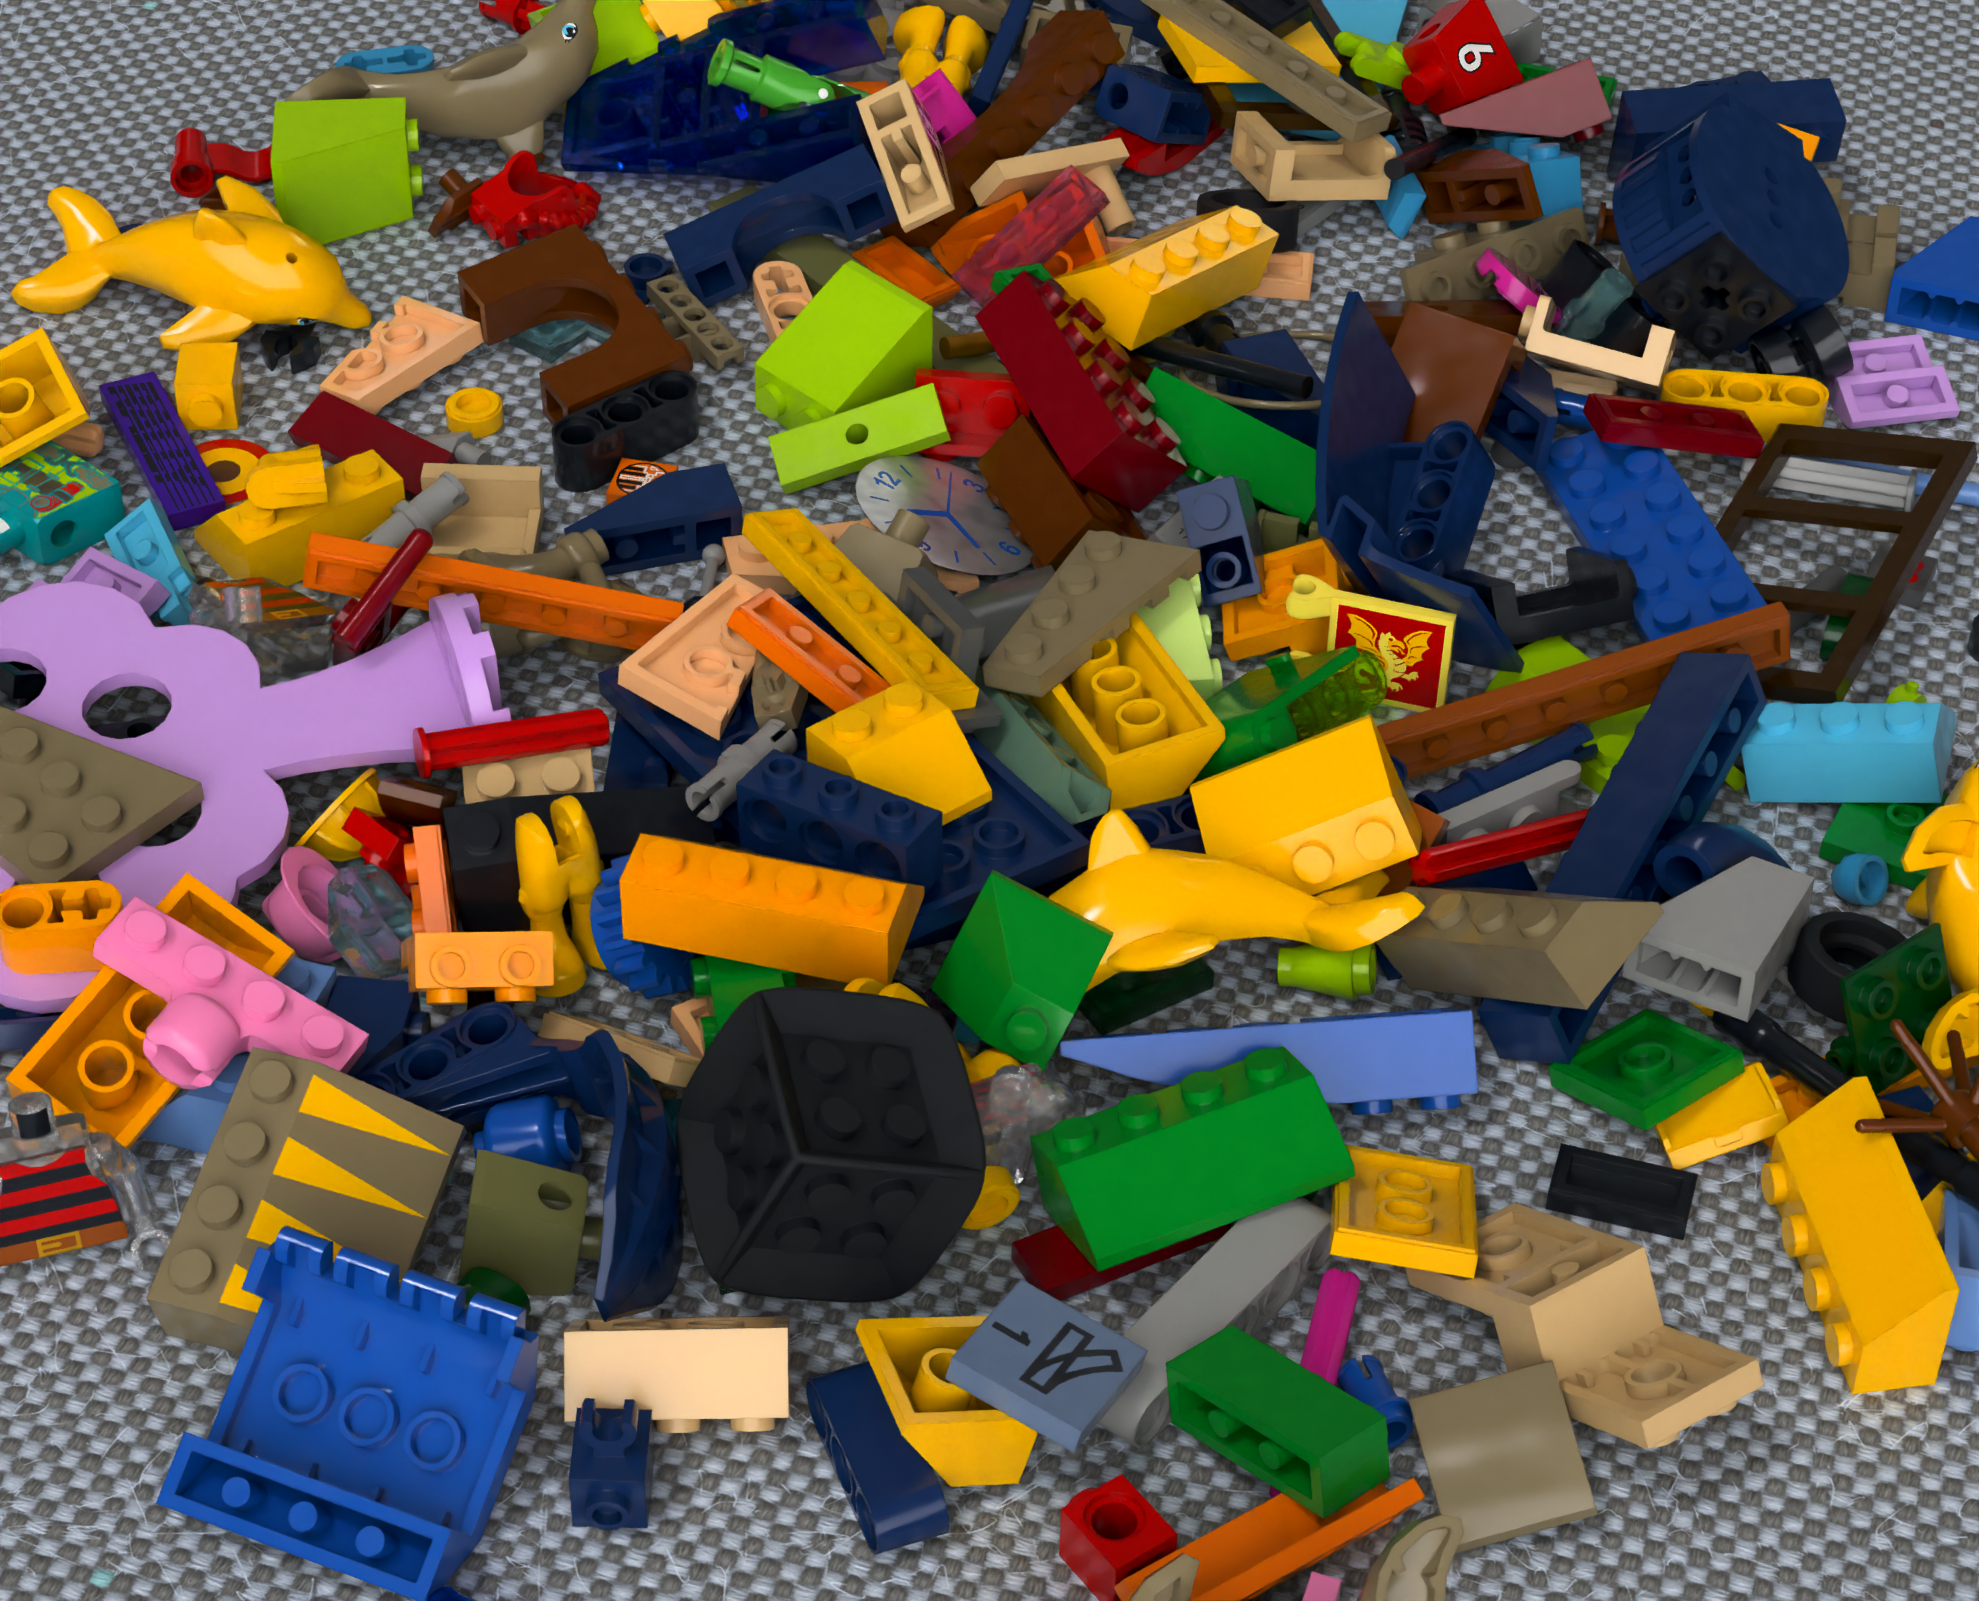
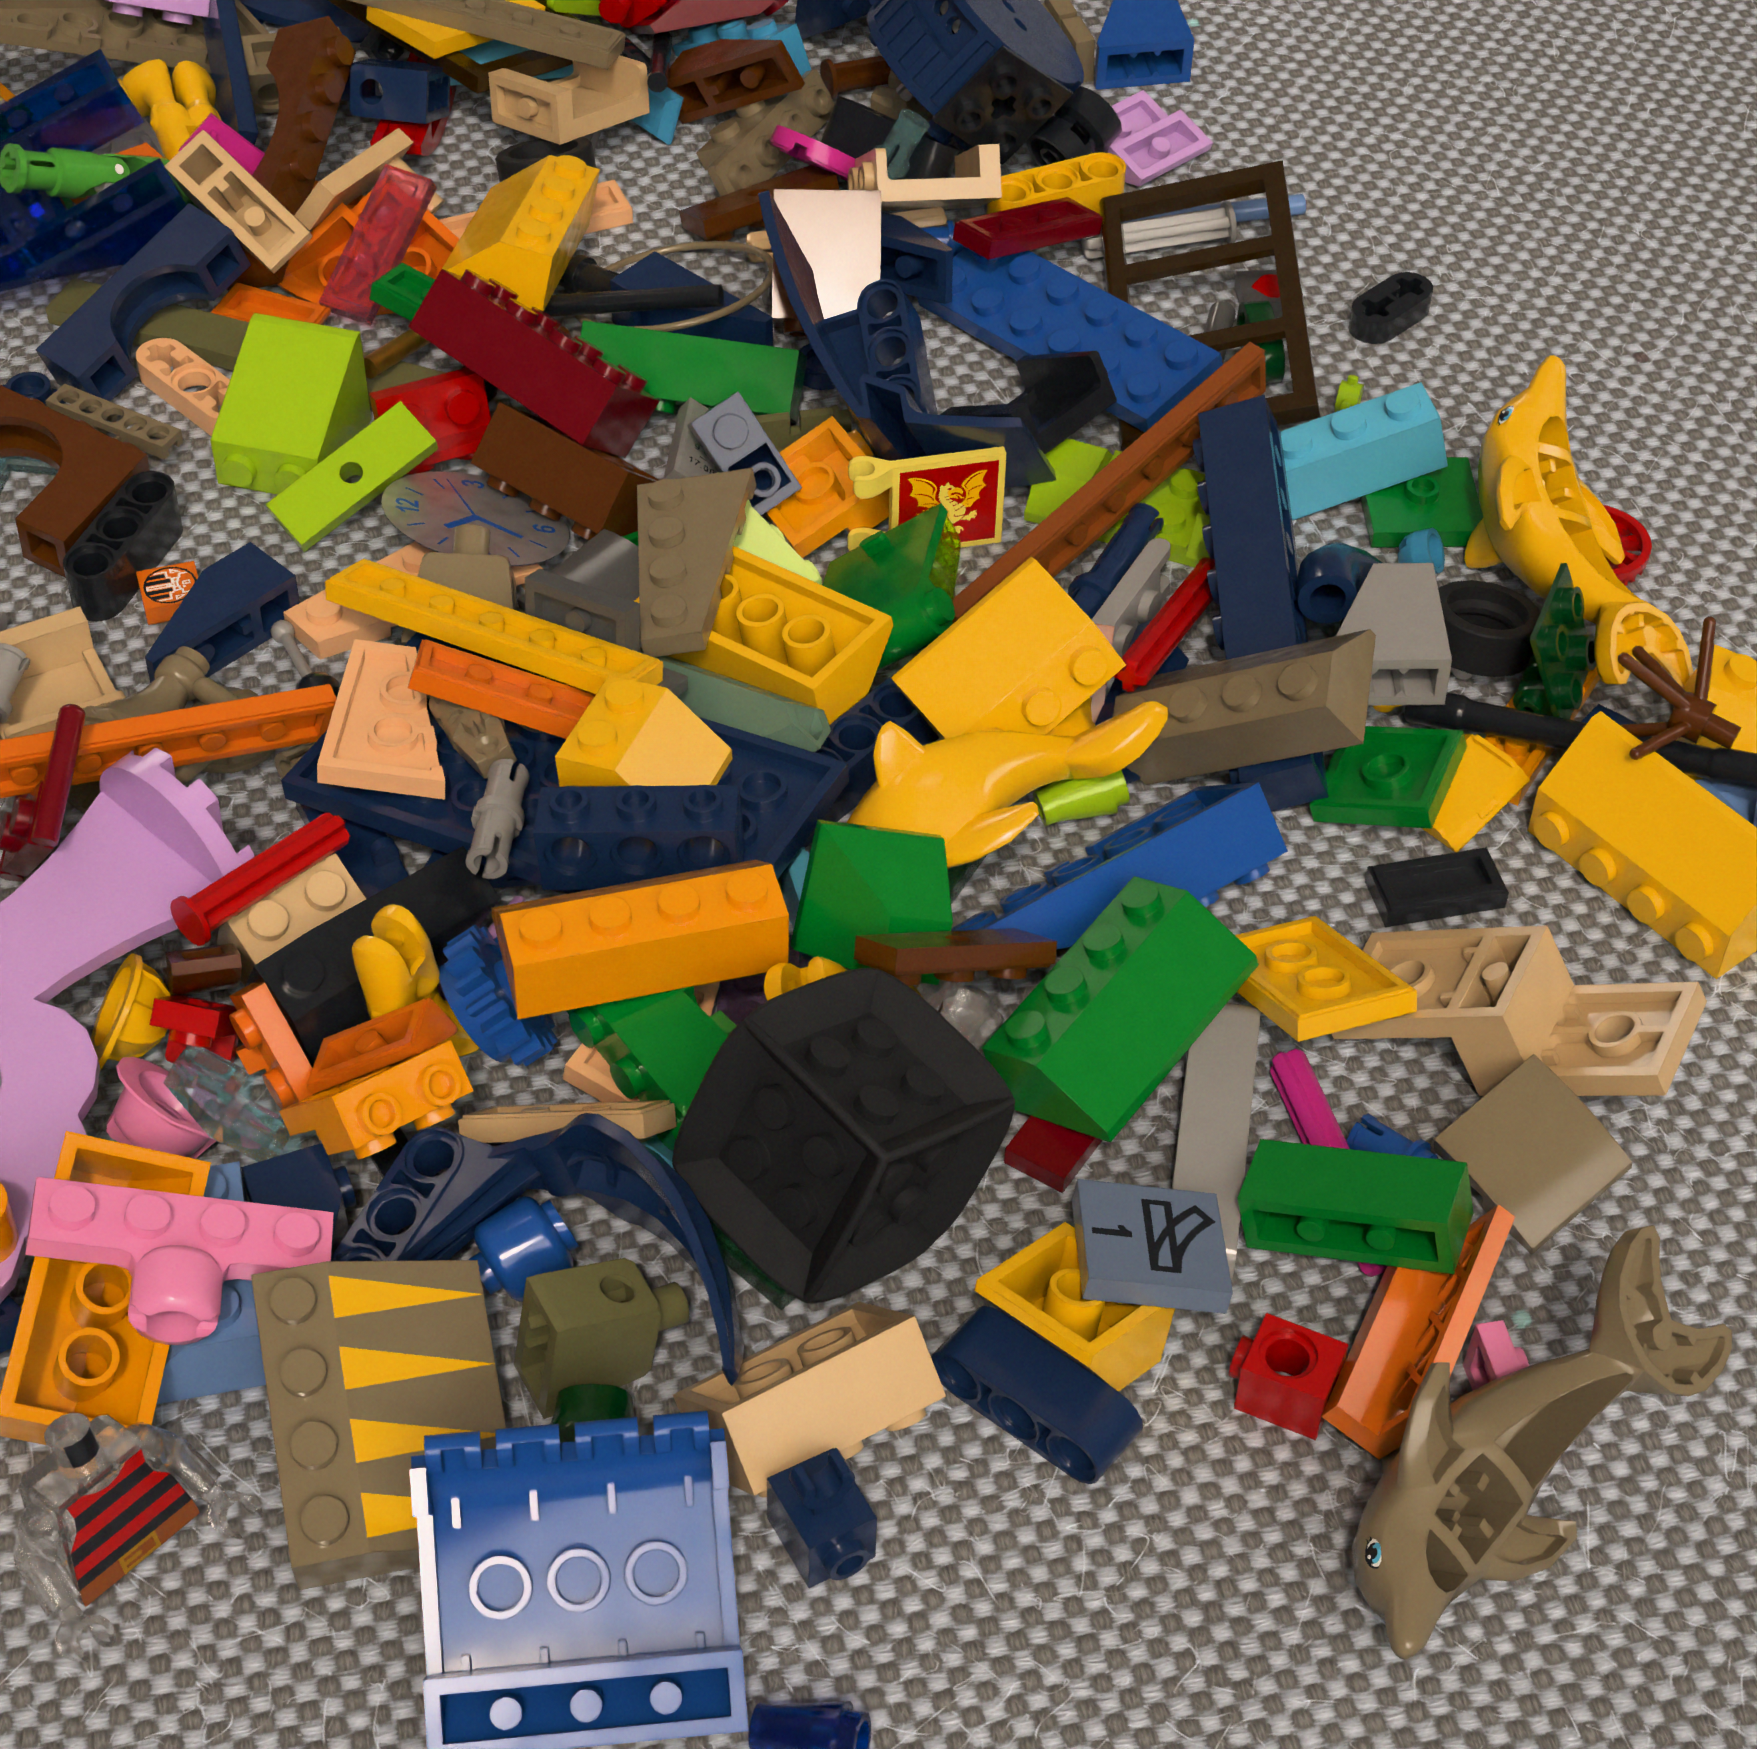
camera: 30 degrees left, 5 degrees up
(516, 912) = (379, 1043): none -> orange slope
(1050, 1041) = (955, 954): none -> reddish brown tile

